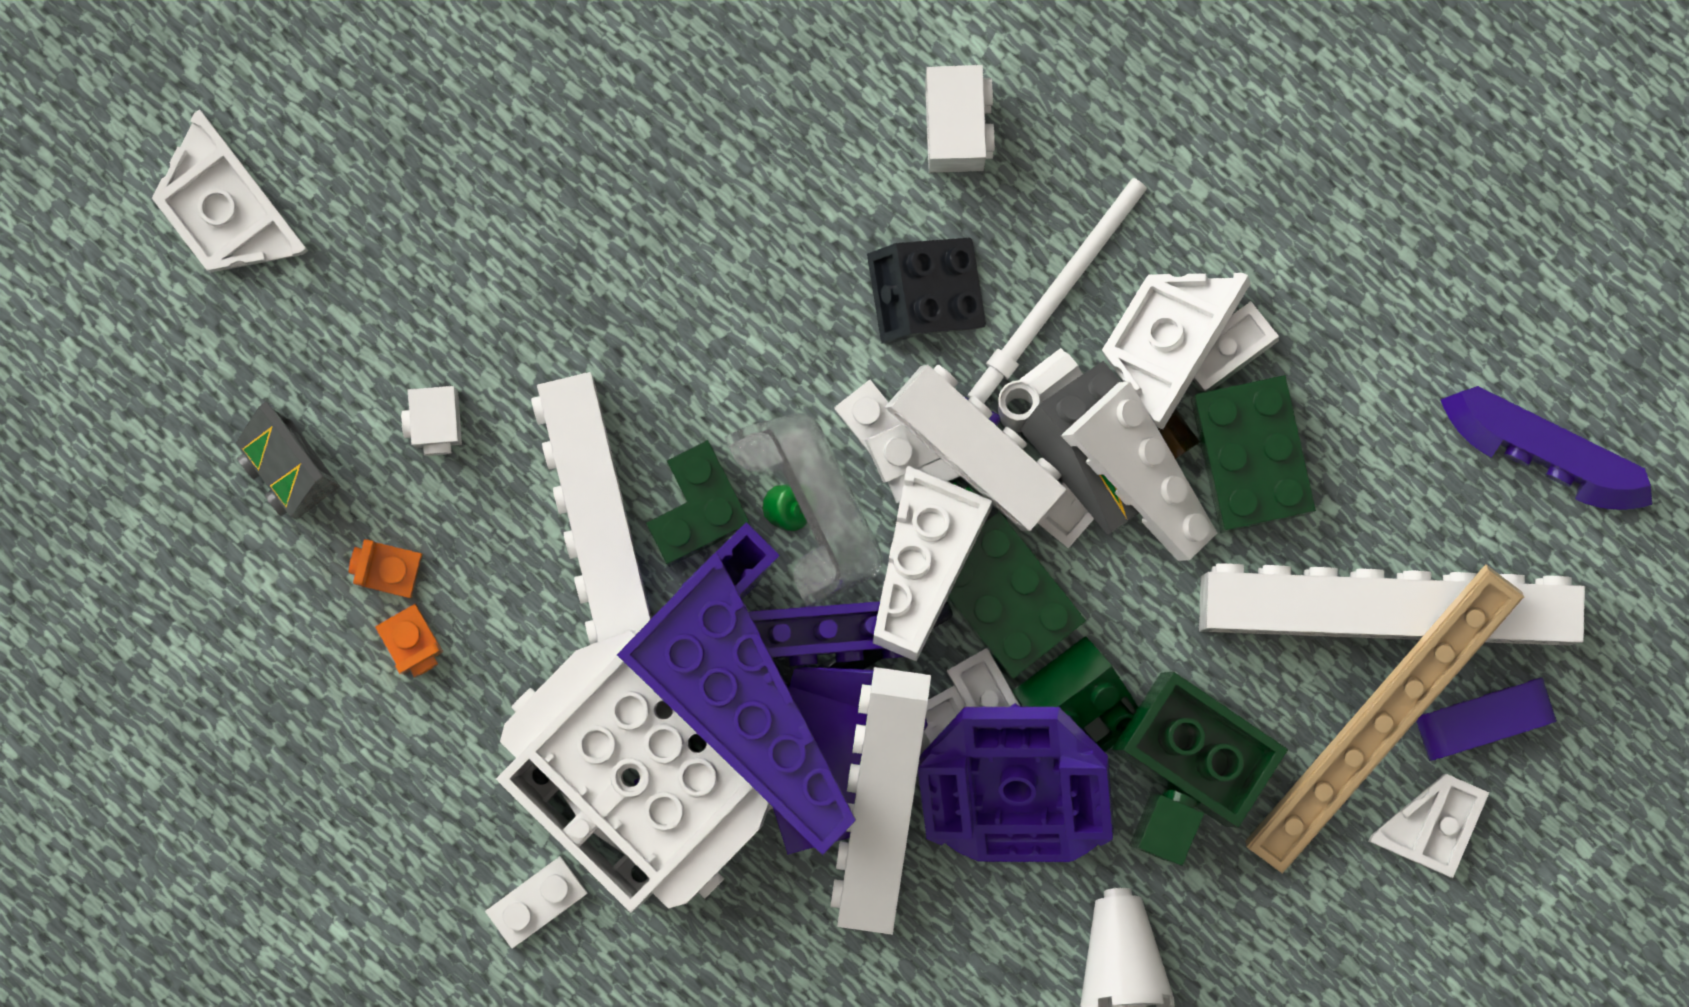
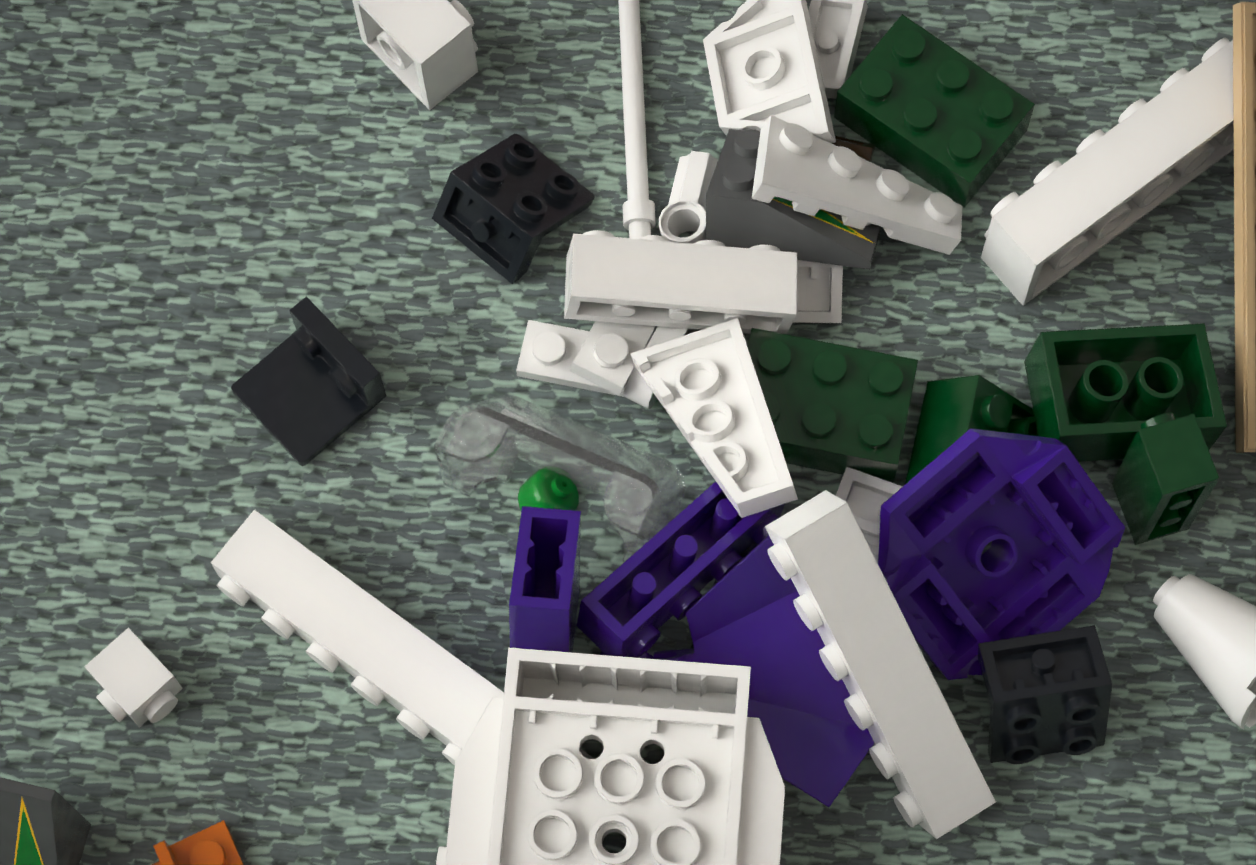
camera: 40 degrees left, 15 degrees down
(691, 310) = (310, 386): none -> black bracket
(710, 509) = (474, 551): dark green brick -> none
(722, 681) = (637, 664): dark purple wing -> none
(978, 895) = (1046, 694): none -> black bracket

